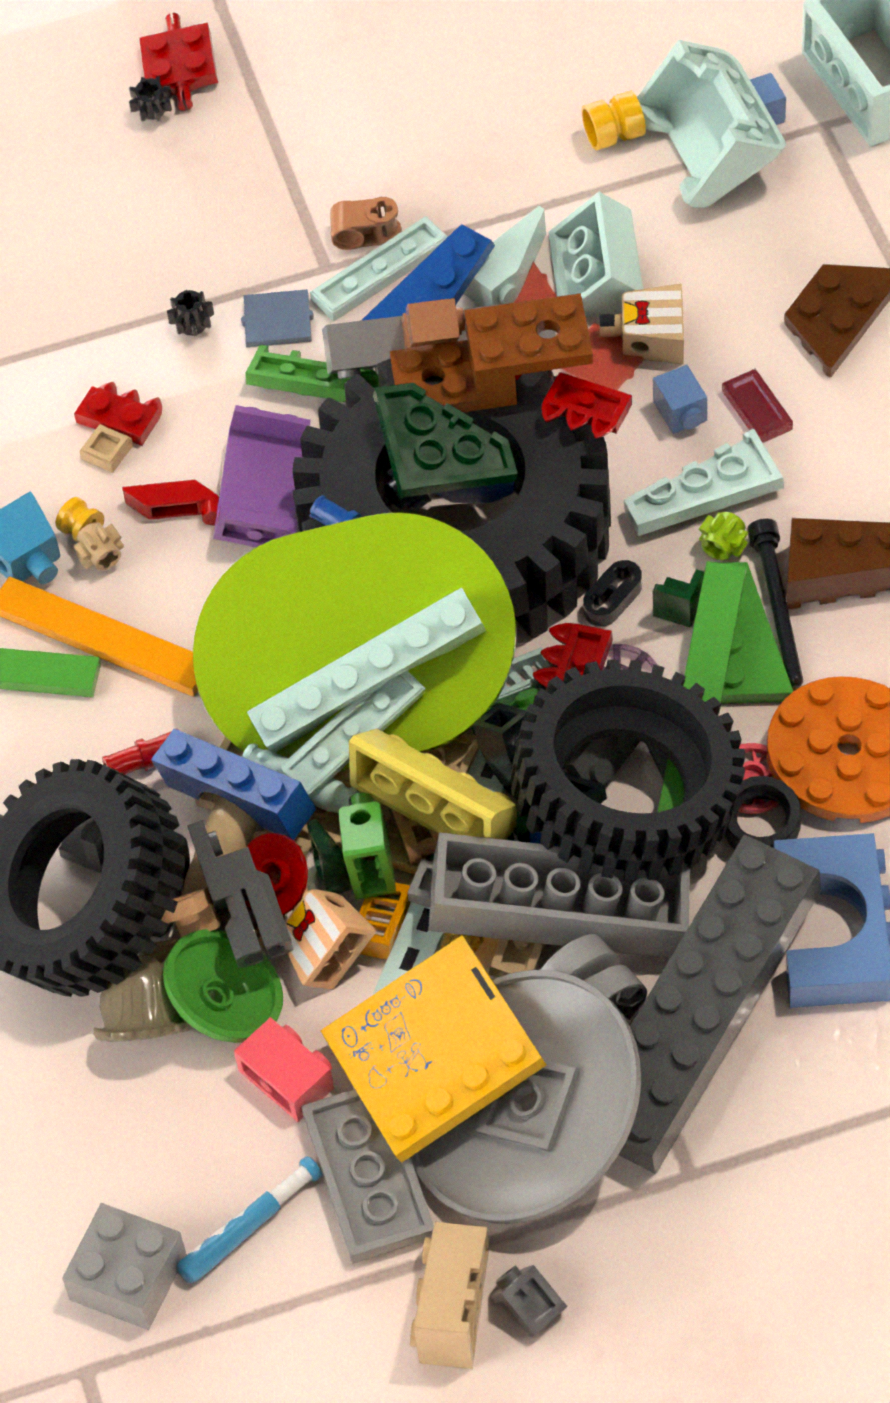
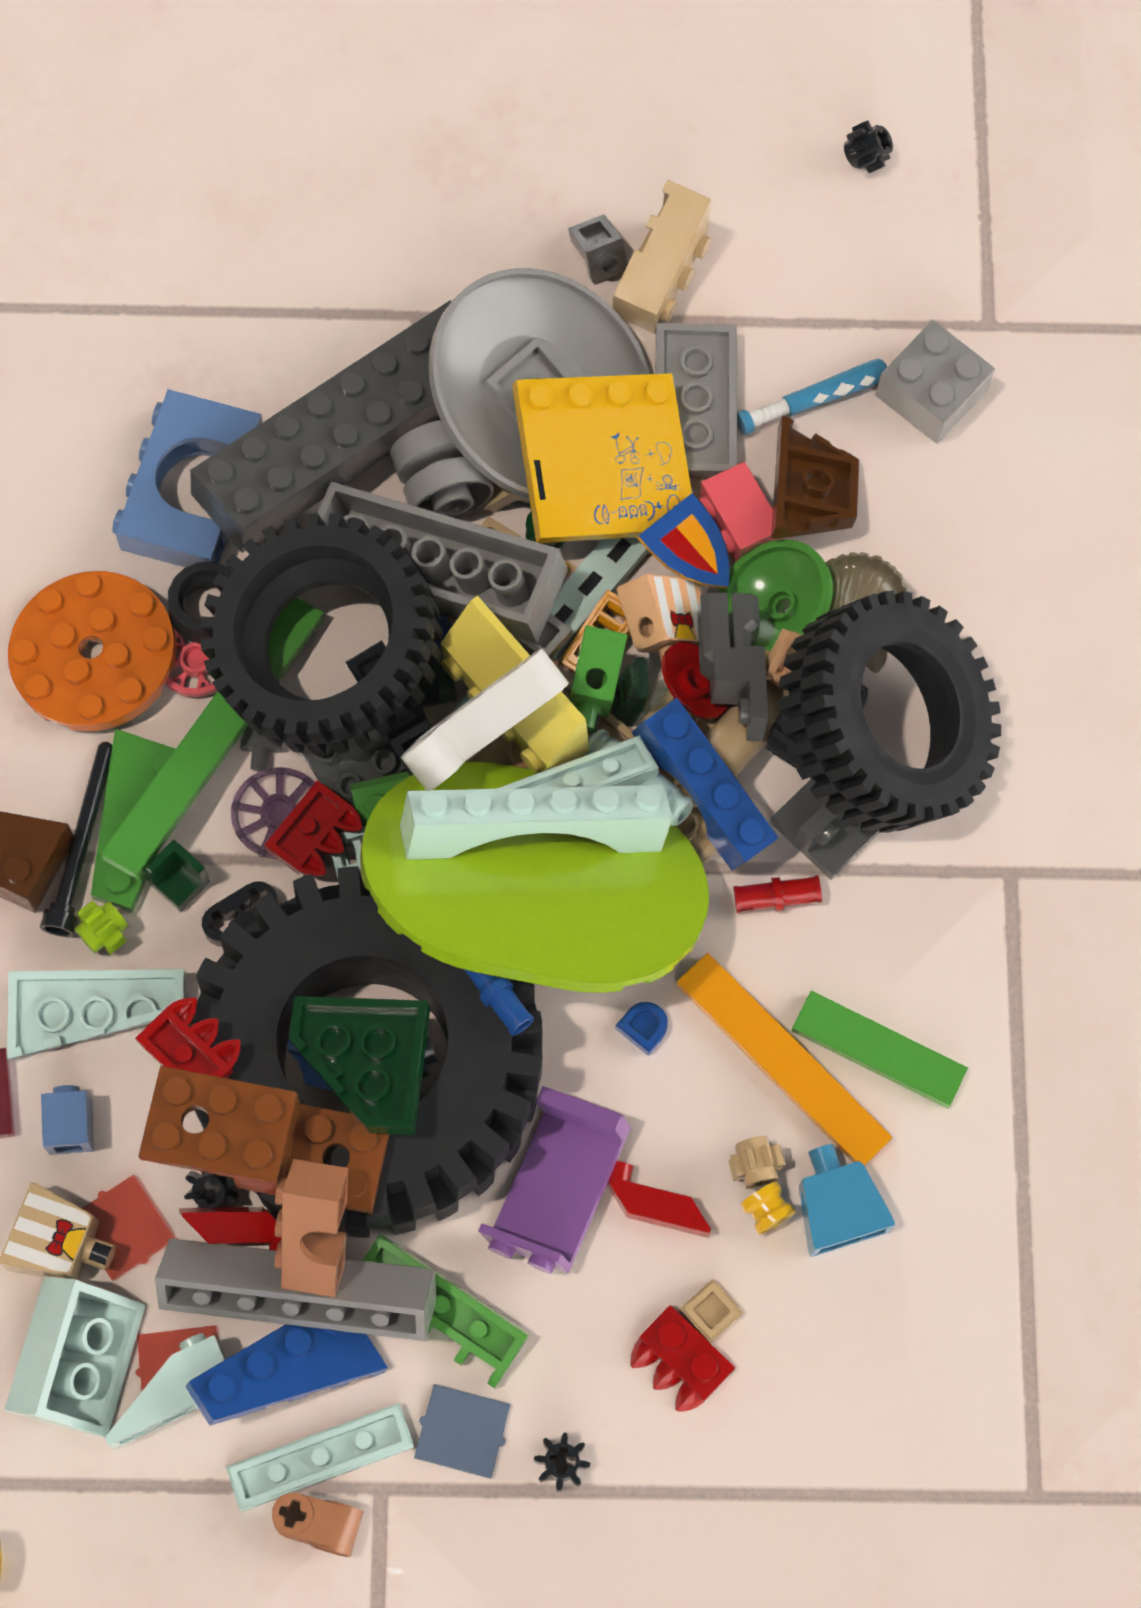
camera: 170 degrees left, 15 degrees up
(220, 1114) = (812, 485): none -> reddish brown wing
(321, 1002) = (689, 544): none -> blue shield
(466, 714) = (483, 719): none -> white beam

